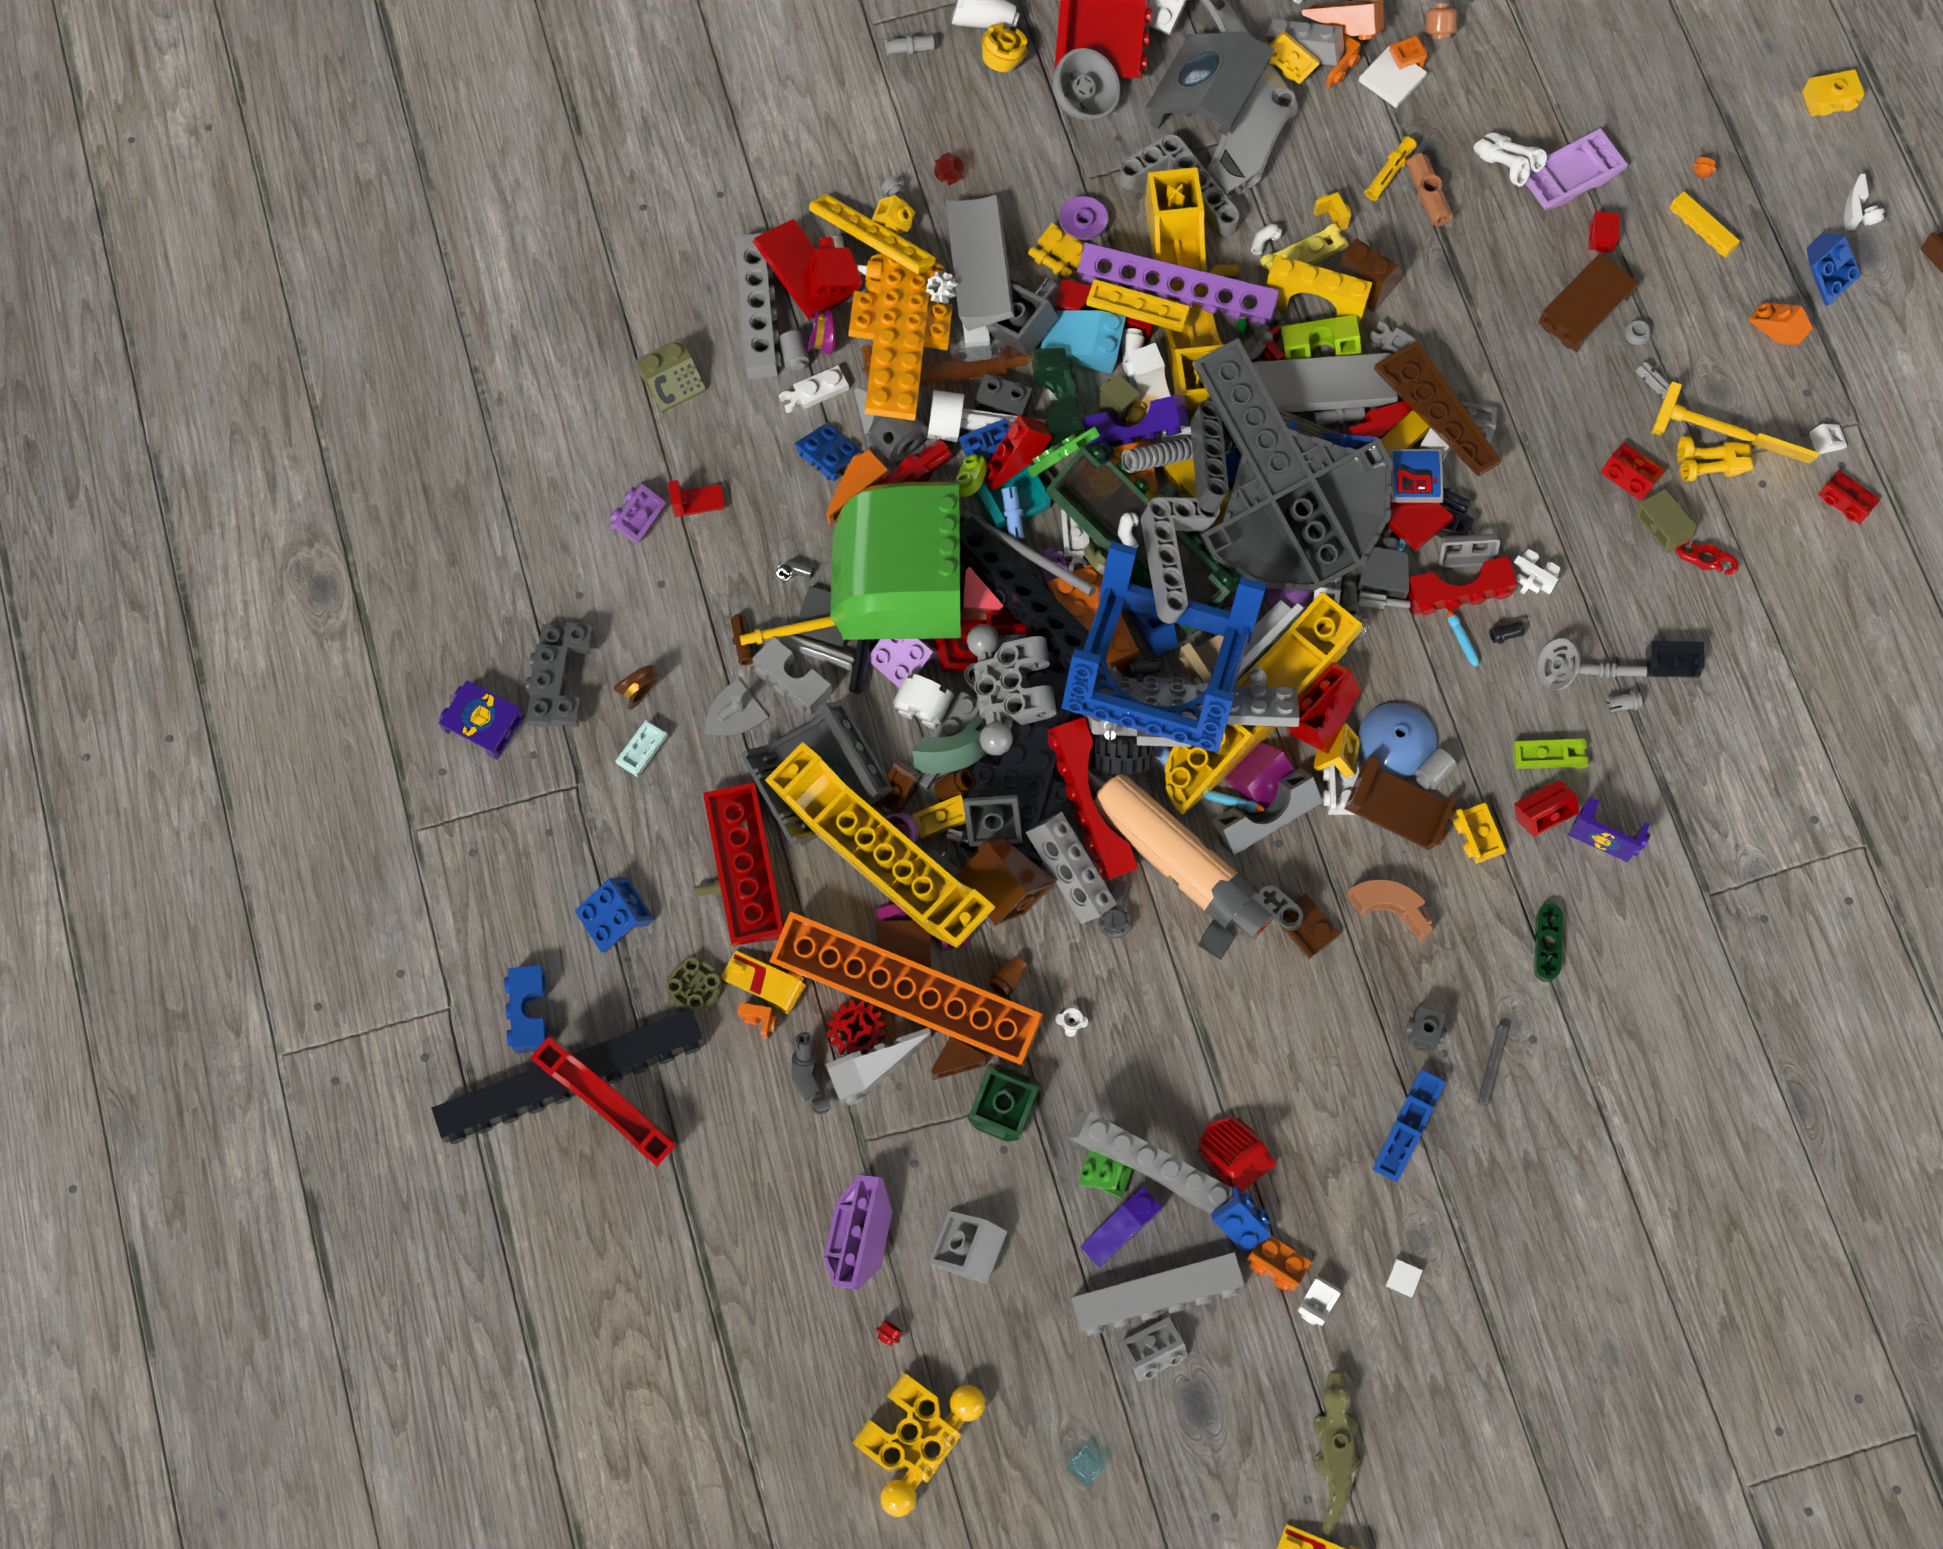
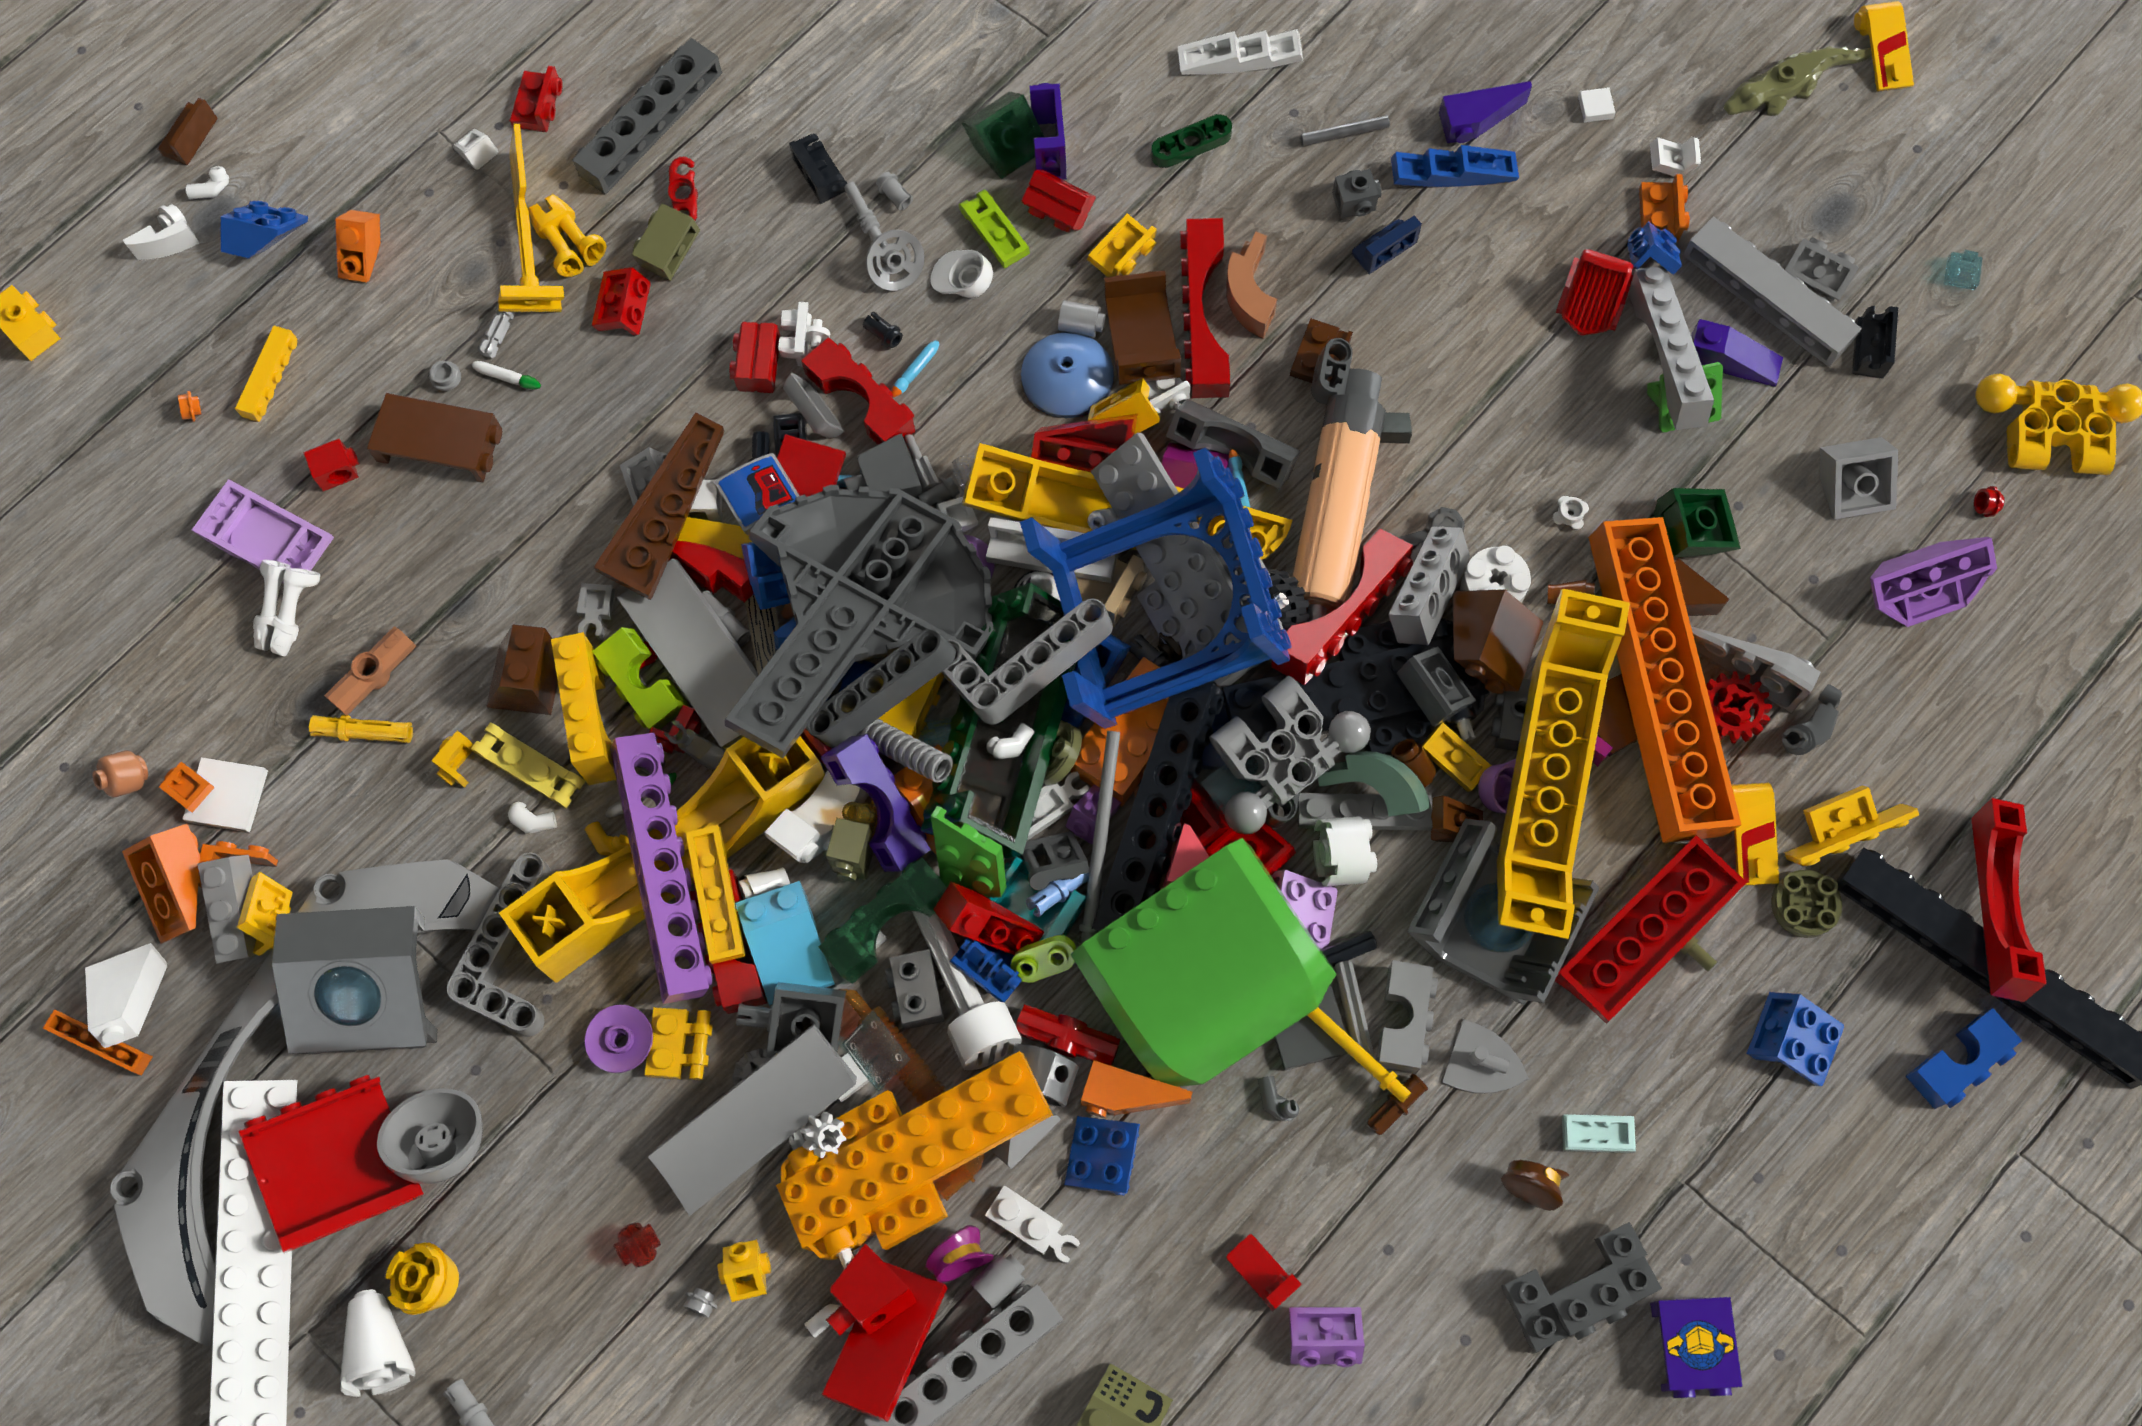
camera: 120 degrees left, 0 degrees up
(727, 1047) = (1844, 821): none -> yellow bracket
(753, 1014) = (1792, 817): orange bracket -> none
(872, 233) = (787, 1280): yellow tile -> none
(1029, 524) = (1063, 856): none -> dark grey plate
(1044, 910) = (1499, 566): none -> white brick
(1067, 1343) = (1875, 342): none -> black hinge
(1370, 1026) = (1387, 243): none -> dark blue bracket
(1442, 889) = (1208, 360): none -> red arch
(1448, 1172) = (1475, 112): none -> dark purple slope
(1521, 708) = (962, 274): none -> white cap
(1530, 532) = (756, 357): none -> red brick
(1603, 381) = (506, 375): none -> white piece
(1608, 1026) = (1241, 54): none -> white slope
(1630, 803) = (1004, 133): none -> clear green slope
(1786, 576) = (645, 130): none -> dark grey brick
(1887, 253) = (212, 187): none -> white arm

